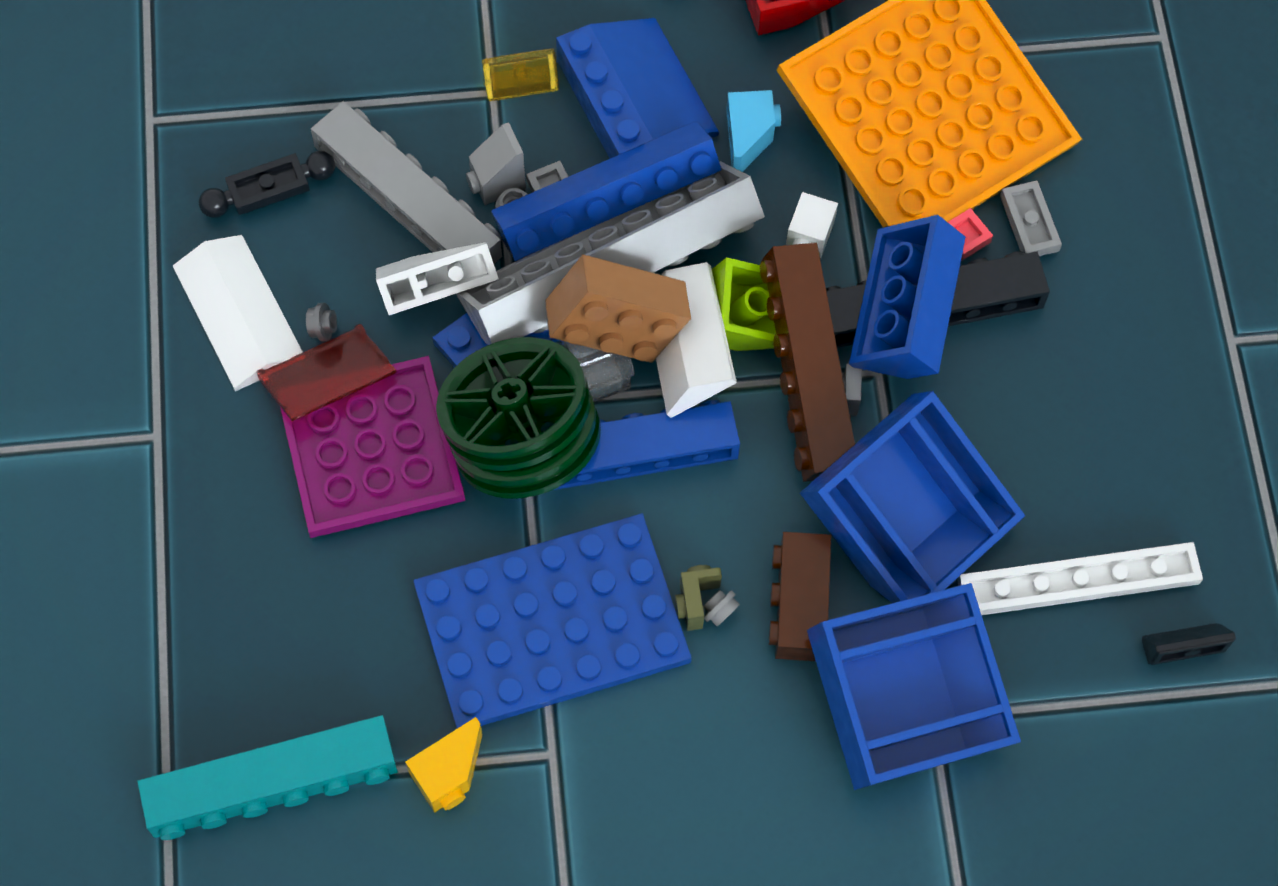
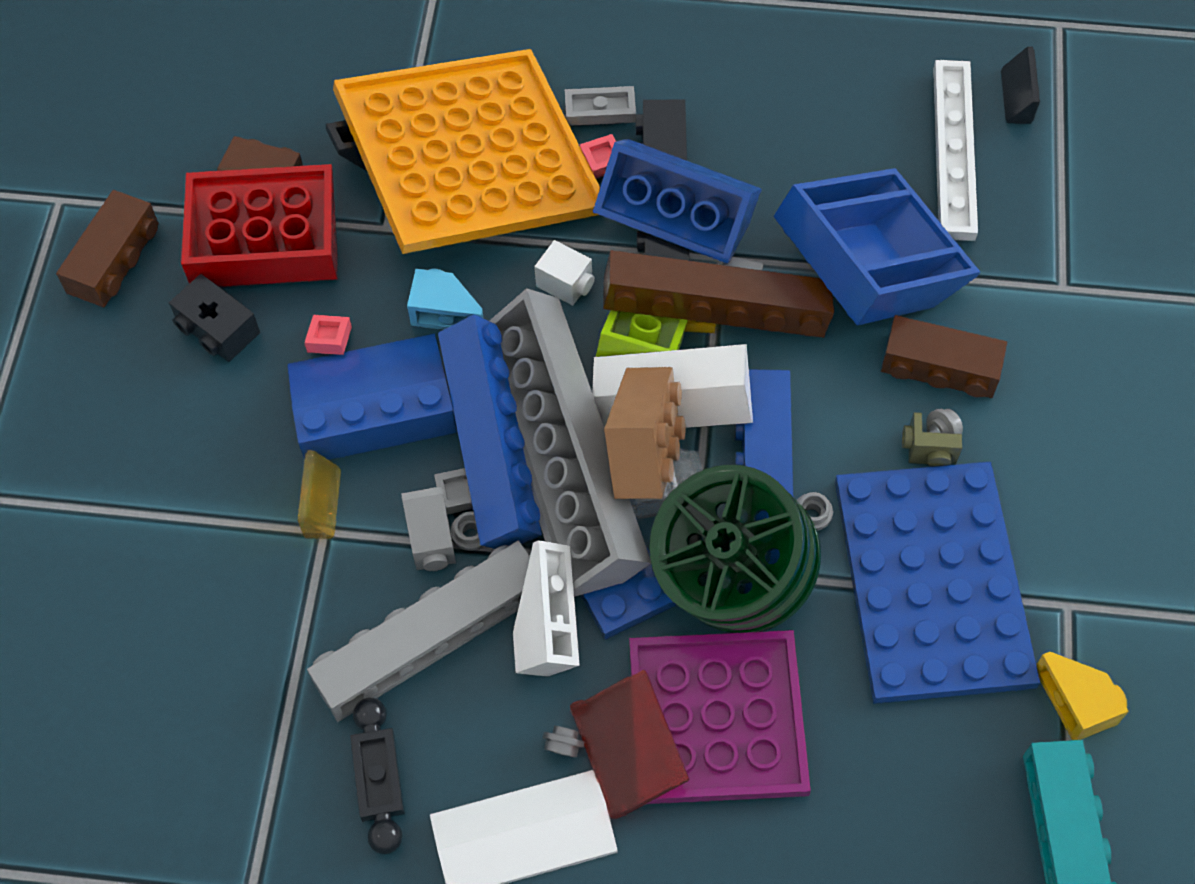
camera: 75 degrees left, 5 degrees down
(599, 488) = (819, 503): none -> light grey plate
(690, 40) = (328, 334): none -> coral plate
(912, 685) = (1057, 280): blue slope -> none

